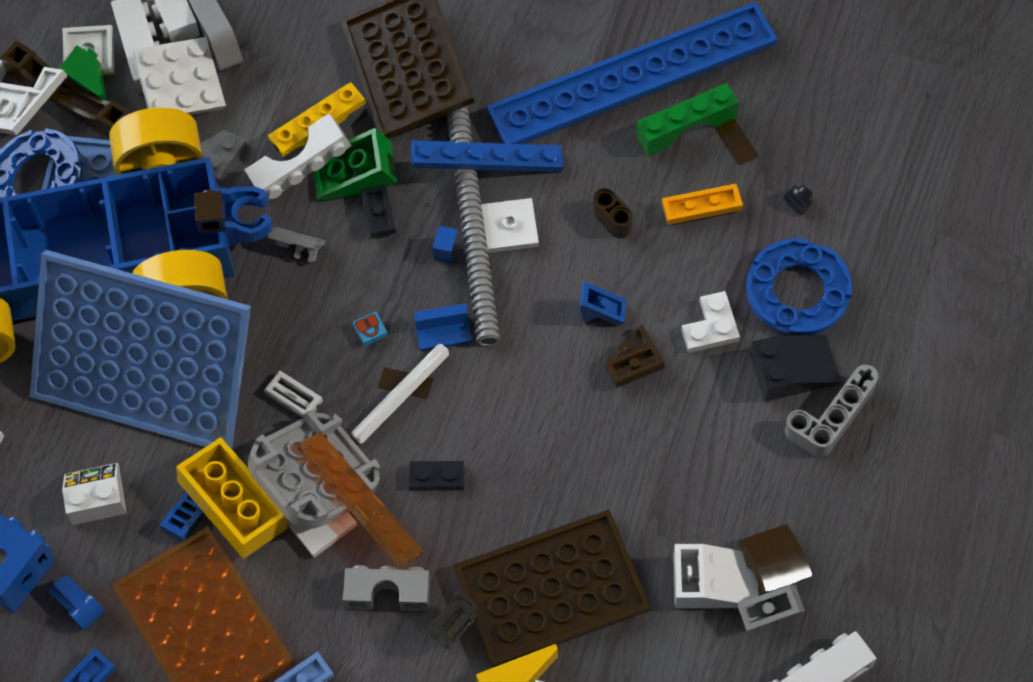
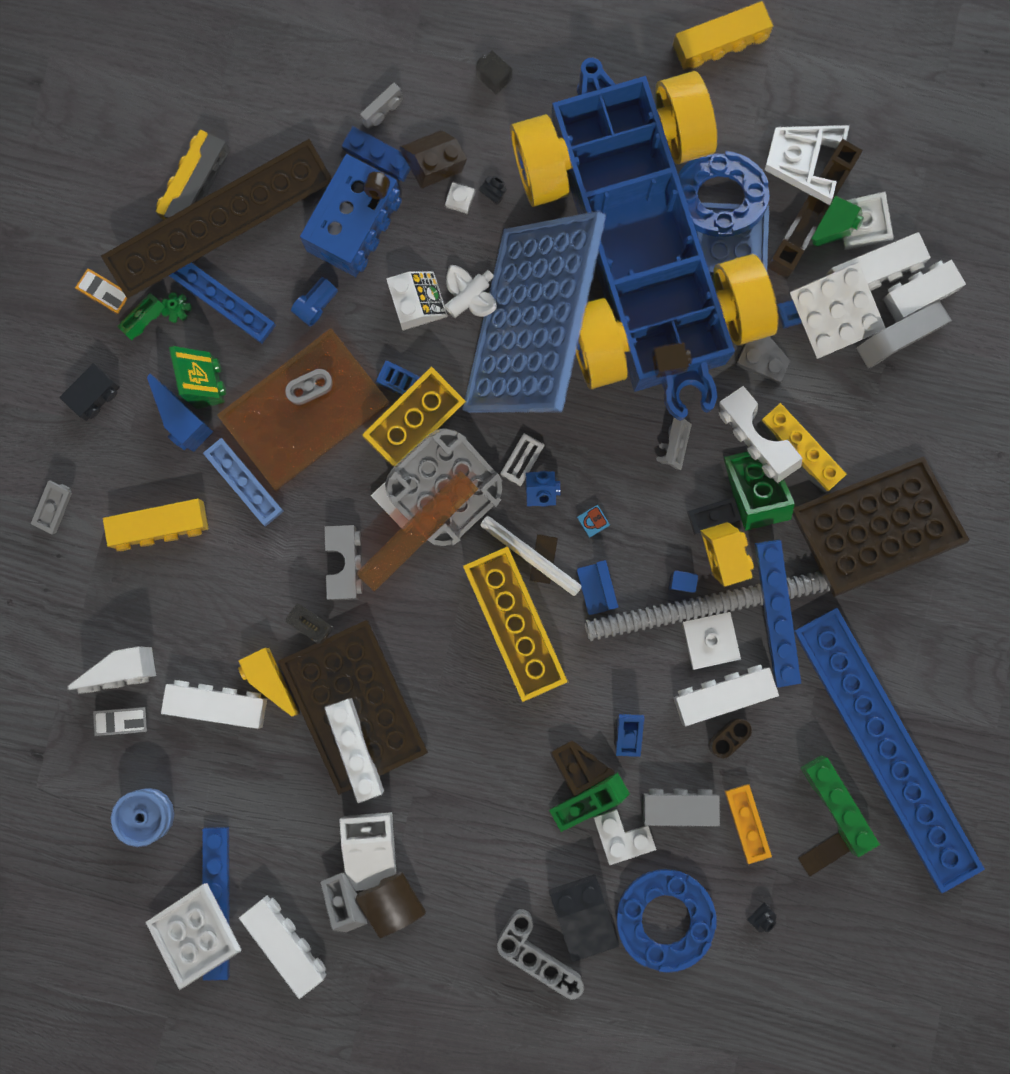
camera: 85 degrees right, 20 degrees up
(96, 435) = (469, 292): none -> white plant
(177, 609) = (308, 384): none -> light grey plate
(328, 373) = (541, 488): none -> blue brick
(420, 195) = (727, 553): none -> yellow brick
(436, 475) = (453, 595): black plate -> none
(474, 408) = (515, 624): none -> yellow brick
(568, 214) = (725, 696): none -> white brick
(624, 570) = (353, 750): none -> white arch
(672, 347) = (590, 802): none -> green slope
(682, 264) = (680, 808): none -> light grey brick

